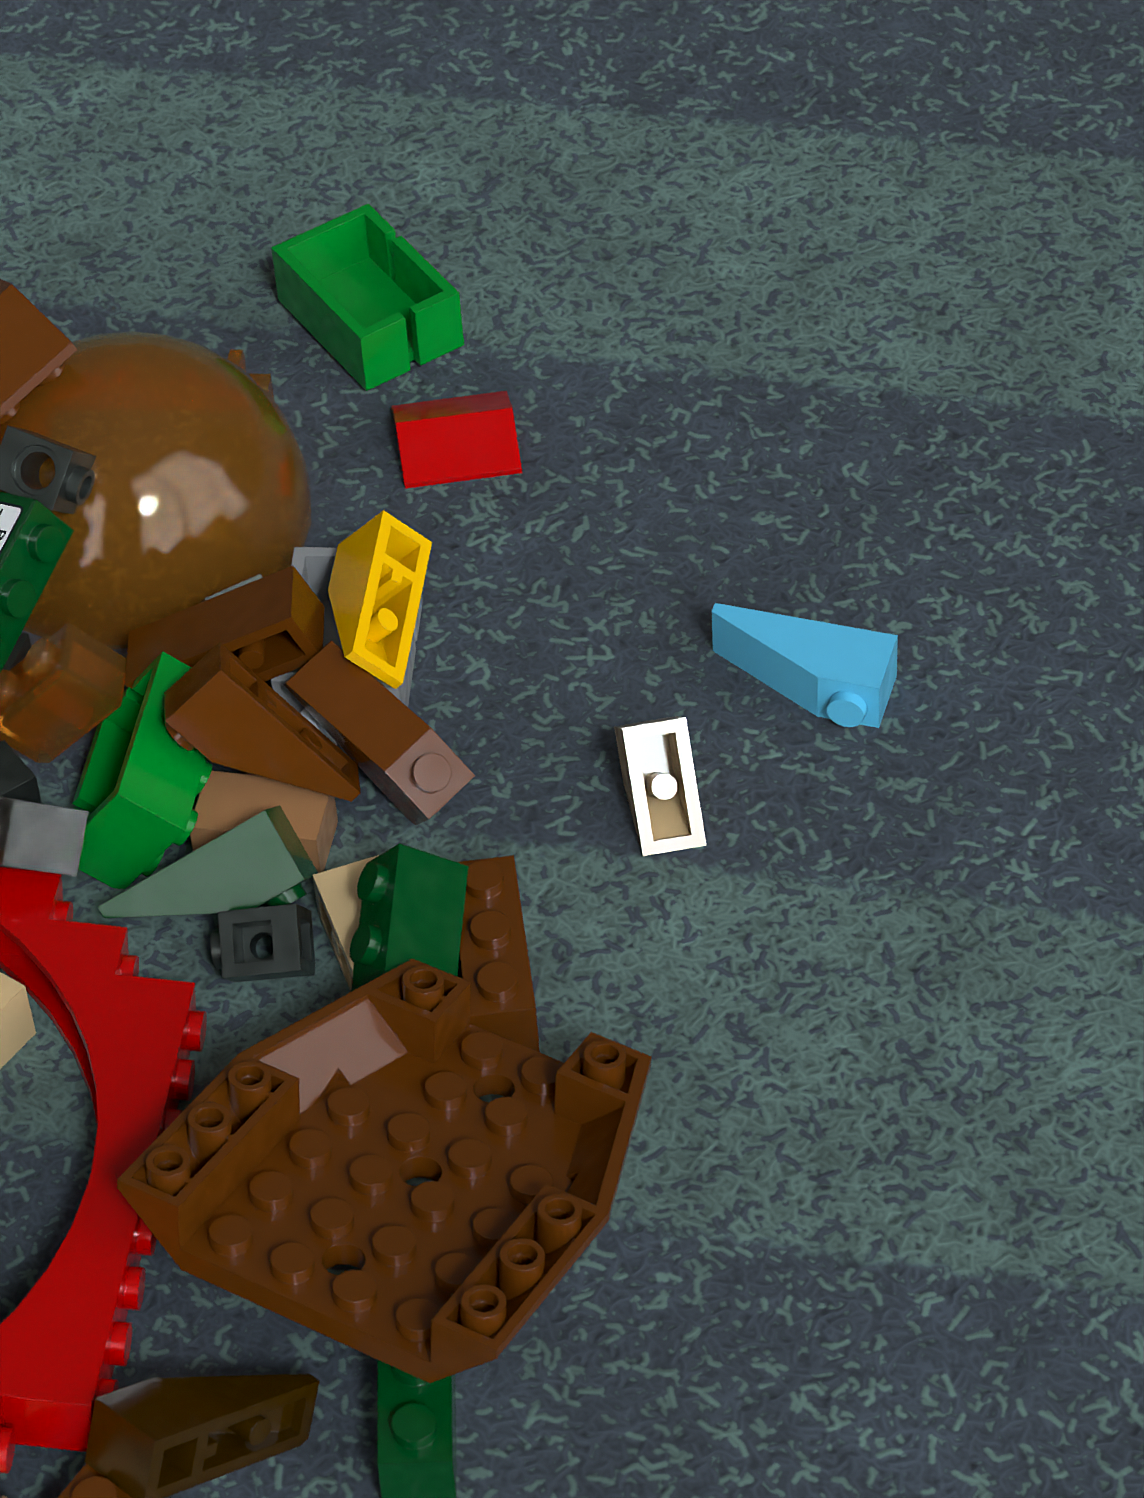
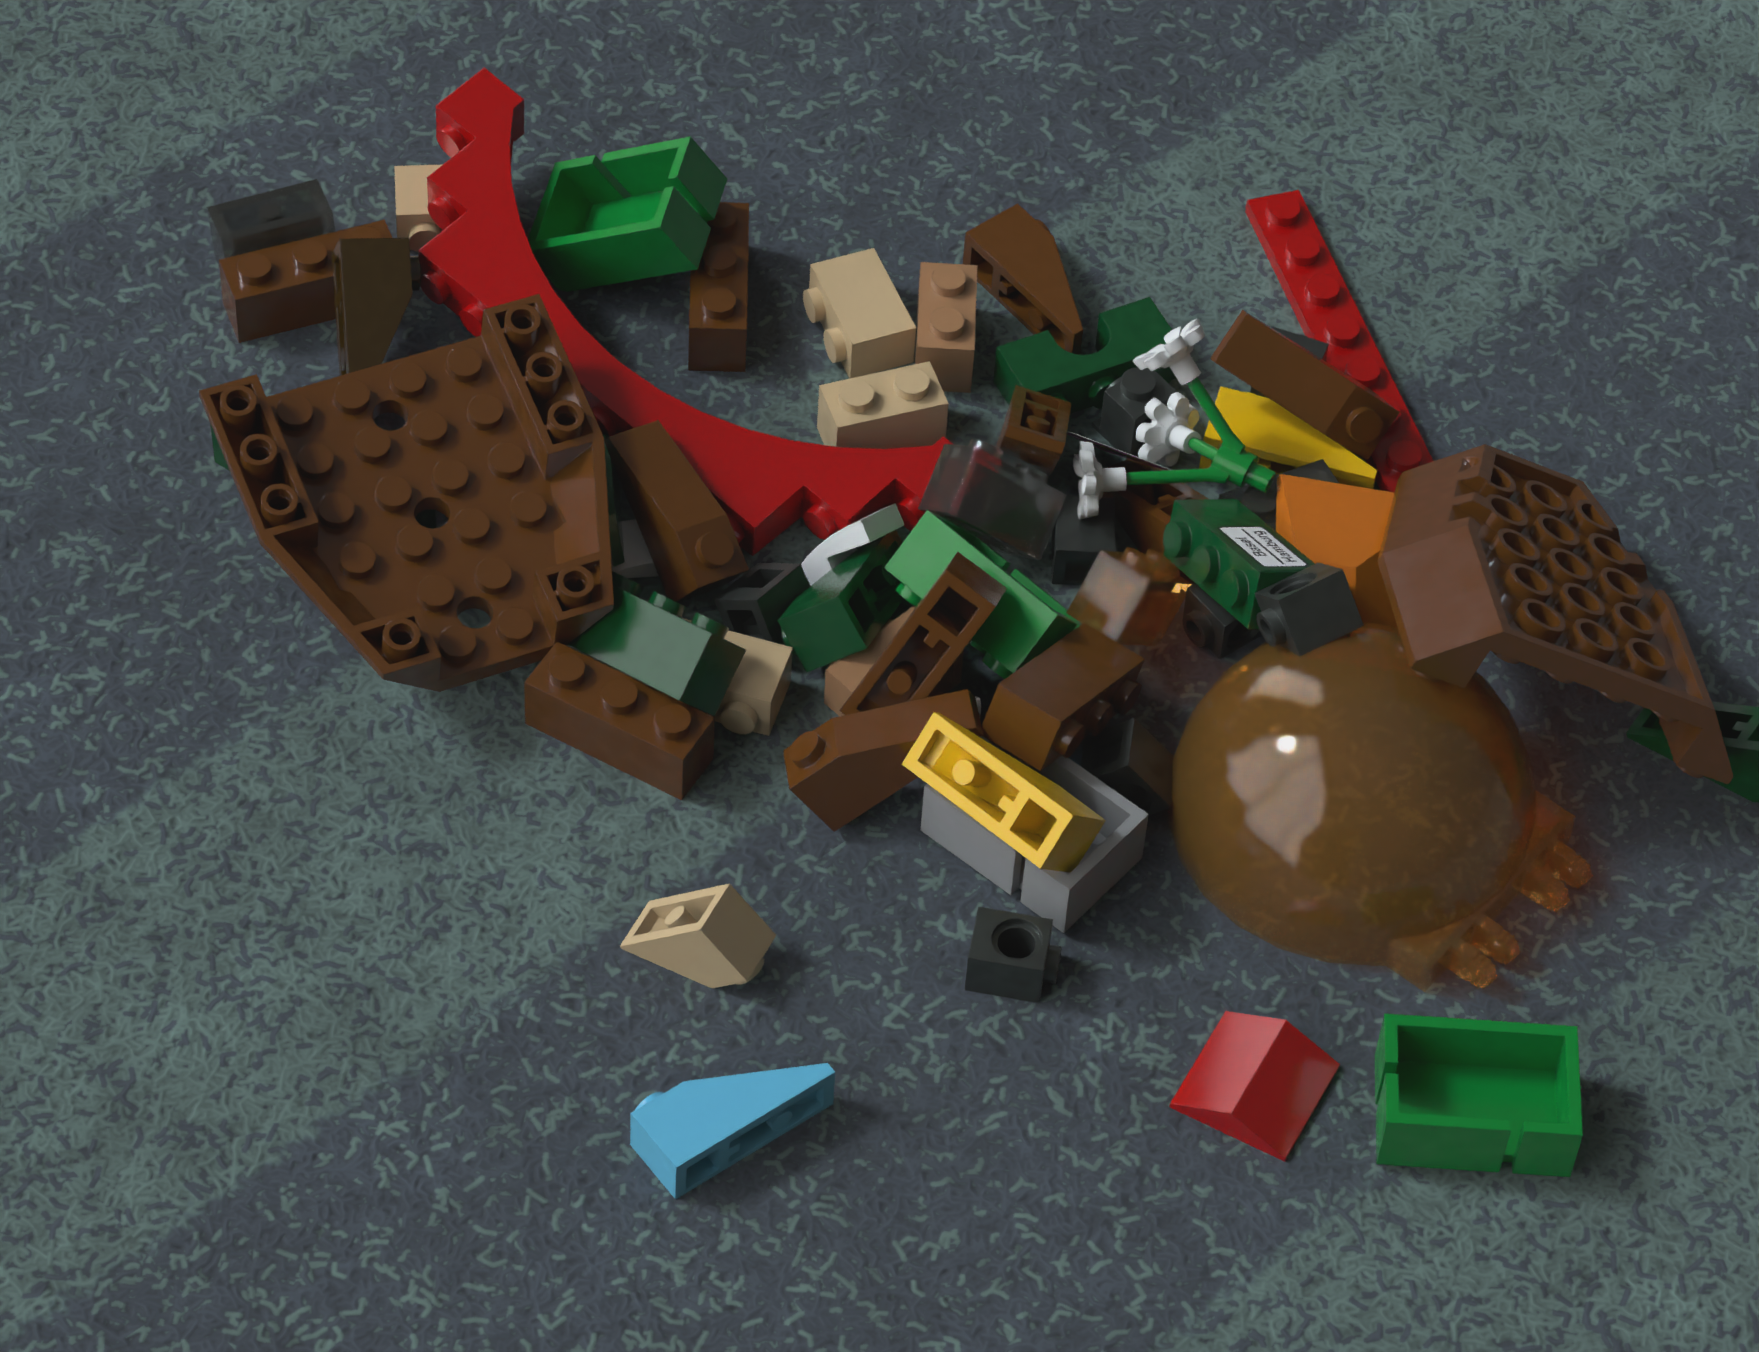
camera: 120 degrees right, 5 degrees up
(145, 903) = (844, 542): none -> white slope
(237, 1012) = (675, 513): none -> reddish brown slope
(486, 600) = (1007, 934): none -> pearl dark grey brick

